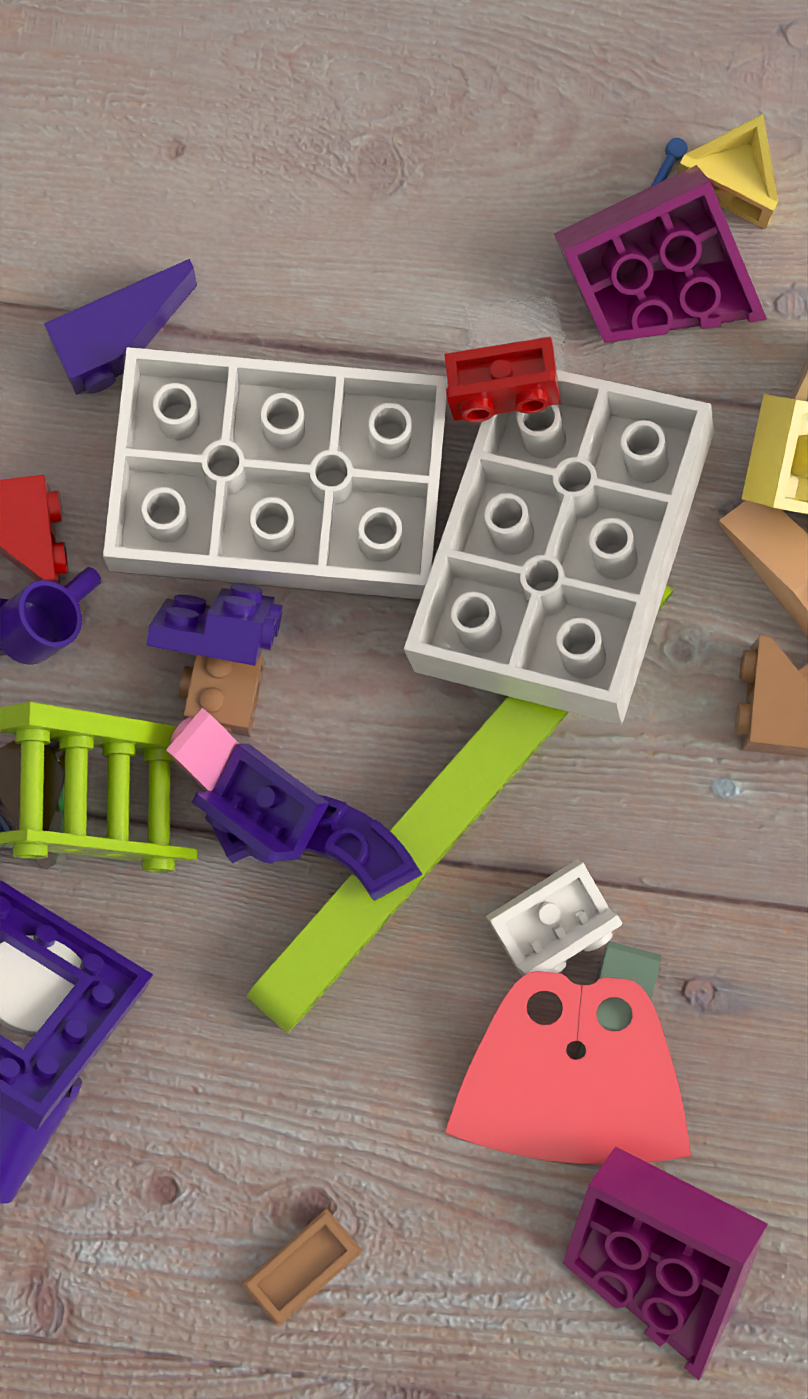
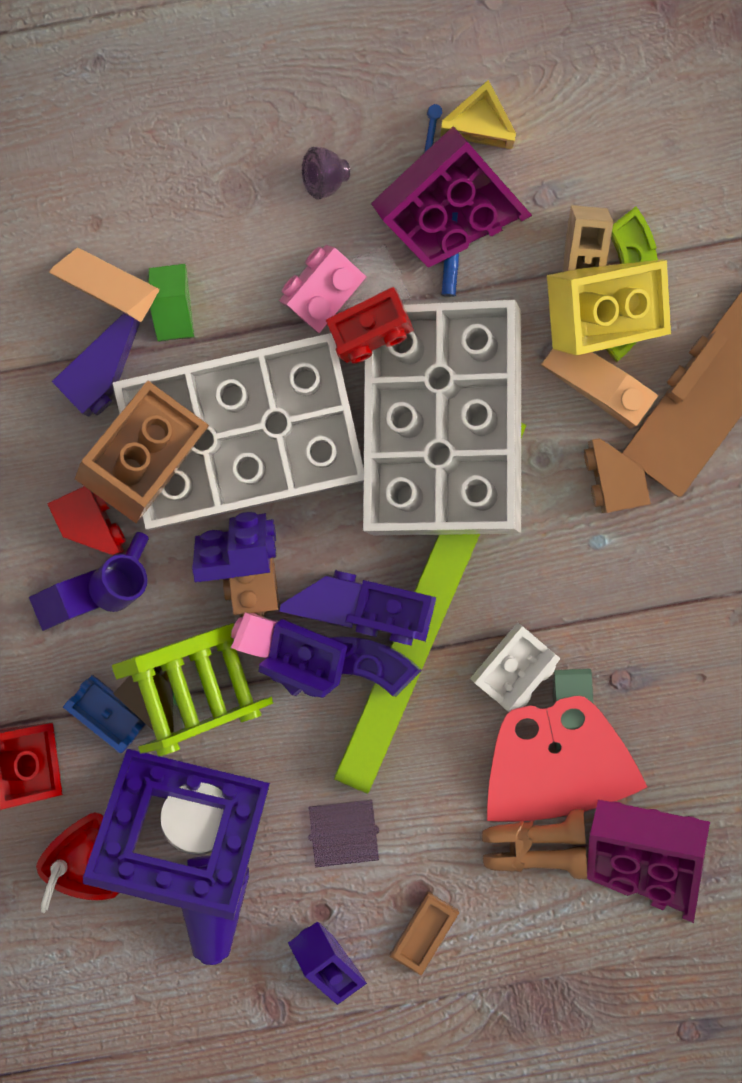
camera: 15 degrees left, 10 degrees up
(132, 446) = (140, 451): none -> medium nougat slope
(146, 1262) = (326, 963): none -> dark purple slope
(162, 222) = (106, 283): none -> light nougat slope
(234, 1083) = (343, 833): none -> clear purple piece
(239, 280) = (172, 305): none -> bright green slope
(320, 741) = (326, 599): none -> dark purple slope
(408, 779) = (392, 611): none -> dark purple bracket
(455, 320) = (321, 287): none -> bright pink bracket
(490, 1168) = (523, 835): none -> medium nougat piece
(503, 174) = (323, 172): none -> clear purple brick
(634, 355) = (450, 271): none -> blue piece

